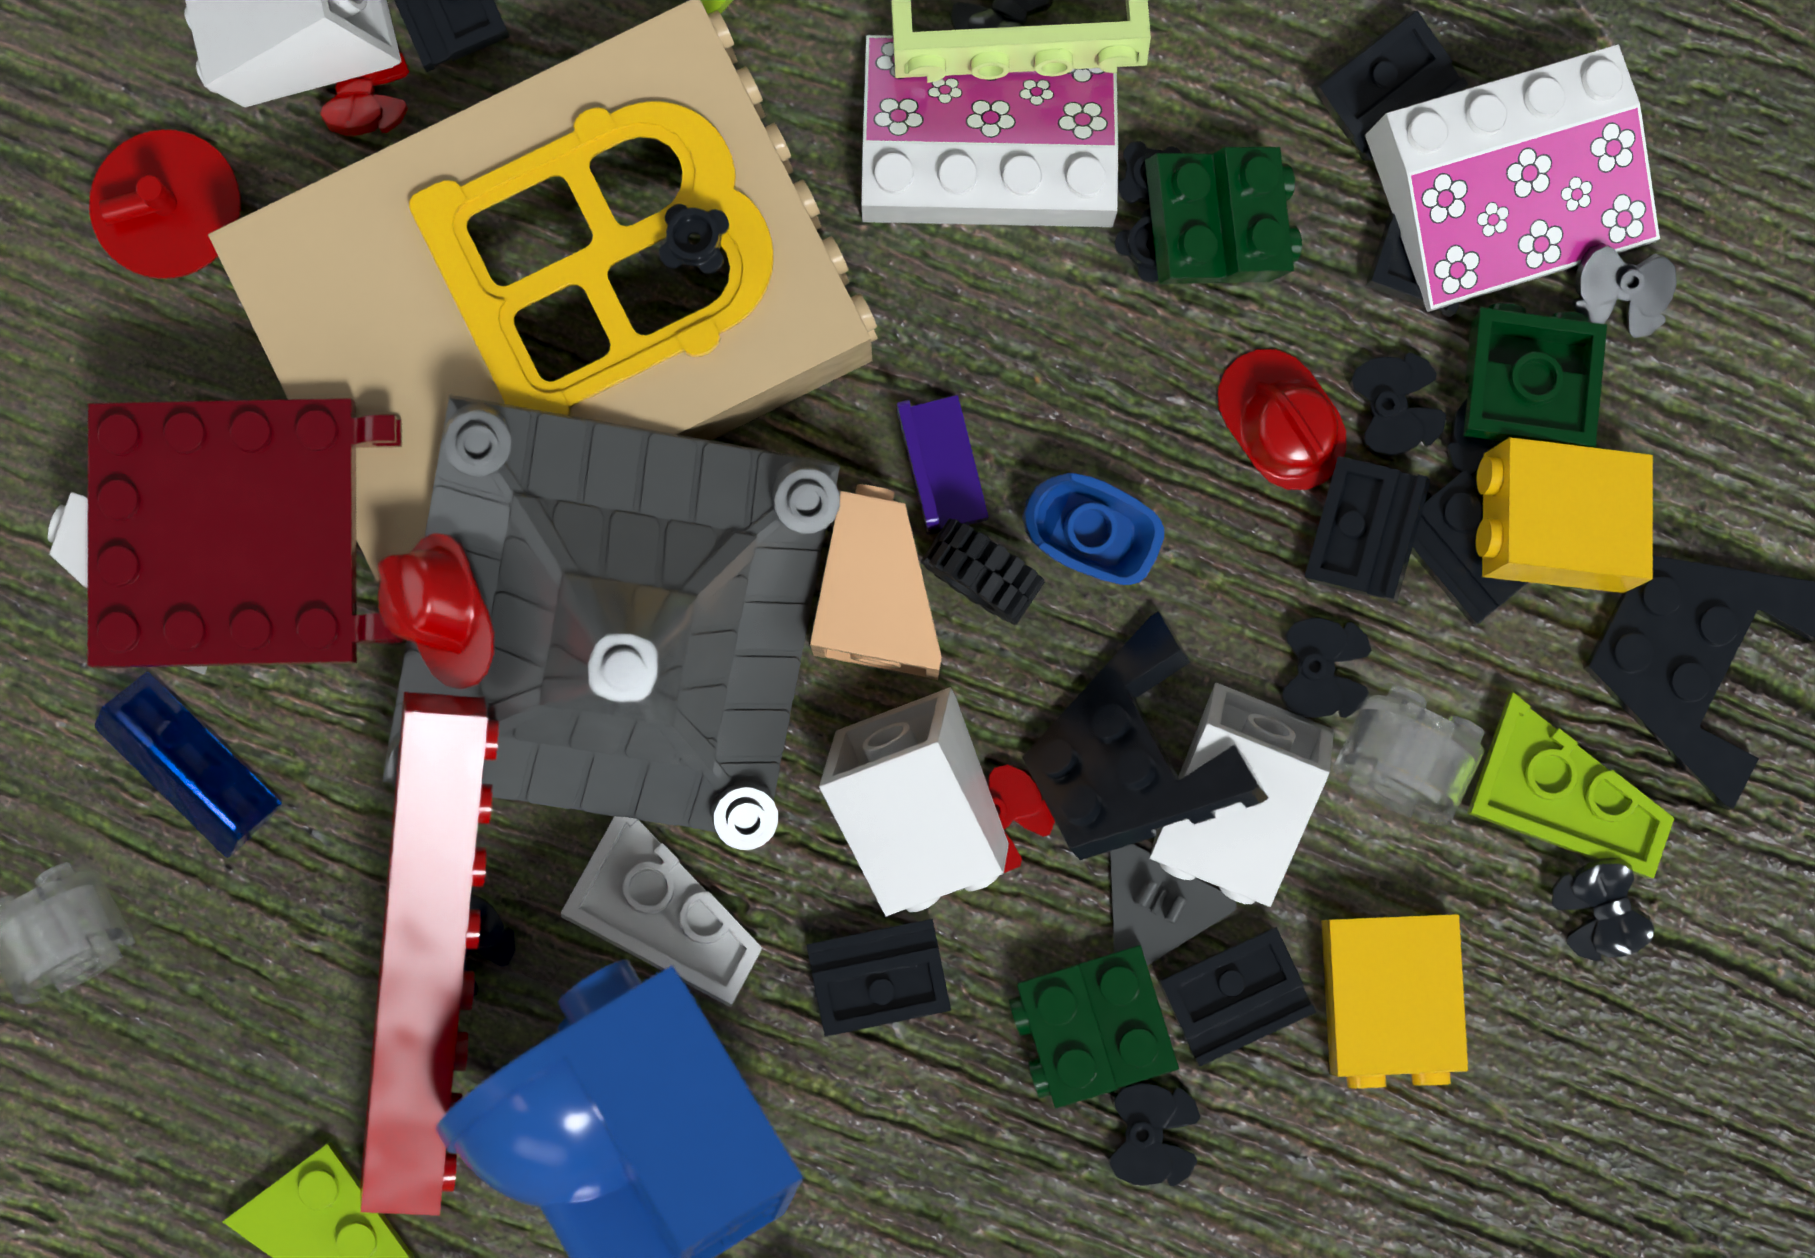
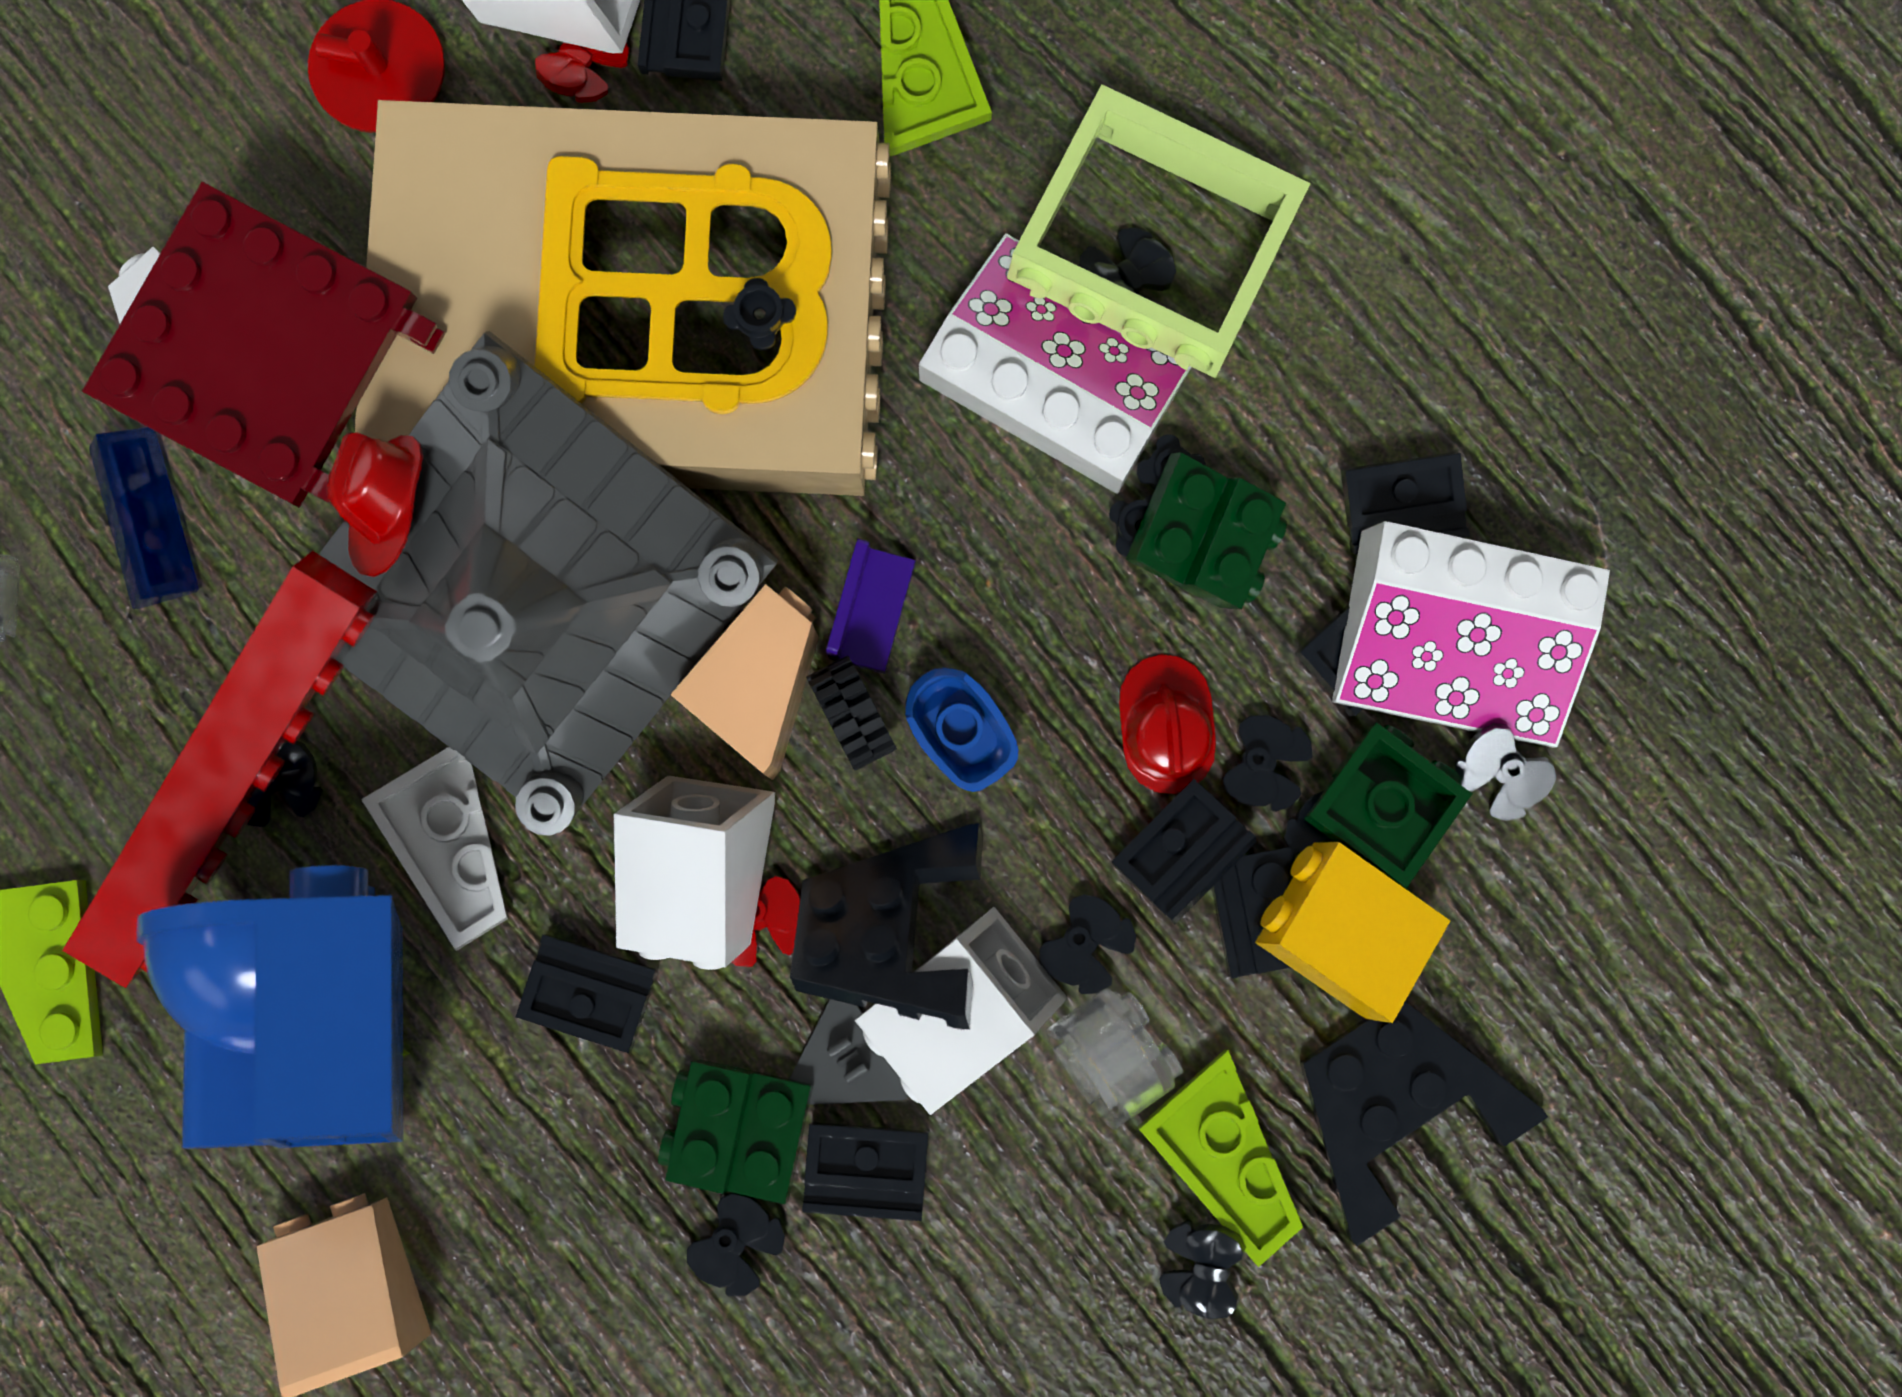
camera: 30 degrees right, 0 degrees up
(1394, 999) = (991, 1246): yellow brick -> none

